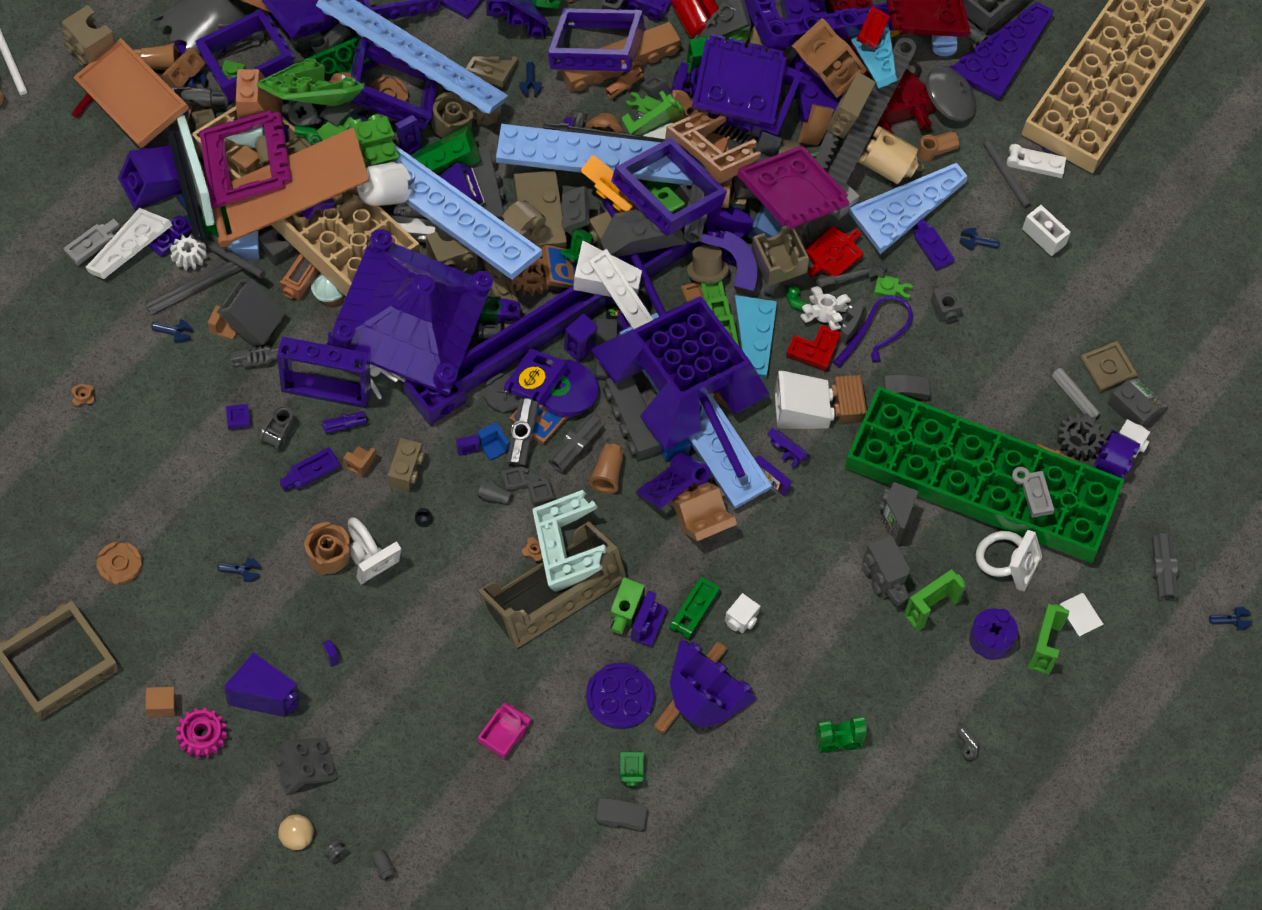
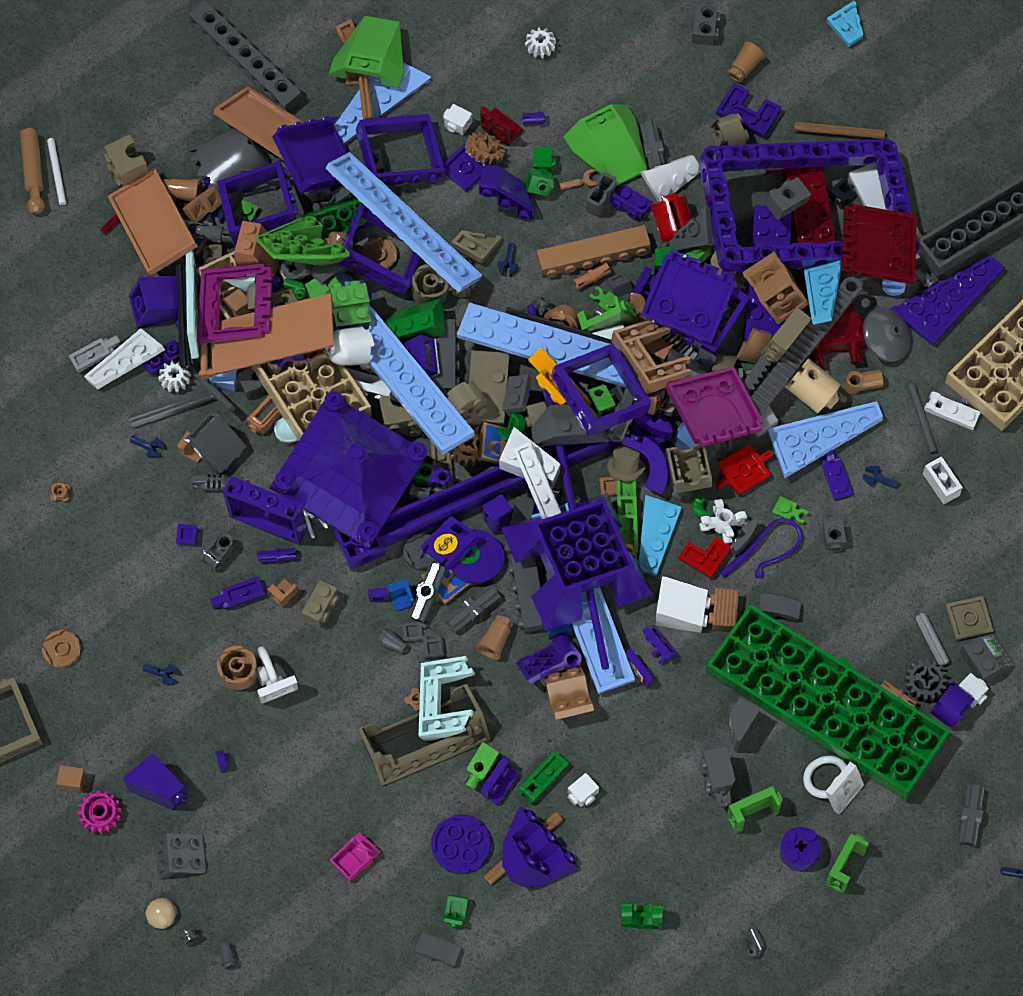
camera: 20 degrees right, 5 degrees up
(408, 135) = (387, 299): dark purple plate -> none
(423, 520) = (326, 656): black hinge -> none
(596, 58) = (569, 254): dark purple window -> none
(871, 270) = (776, 491): dark grey piece -> none
(873, 28) = (823, 264): red tile -> none
(1035, 492) = (865, 728): light grey hinge -> none
(1081, 614) = (886, 844): white sticker -> none

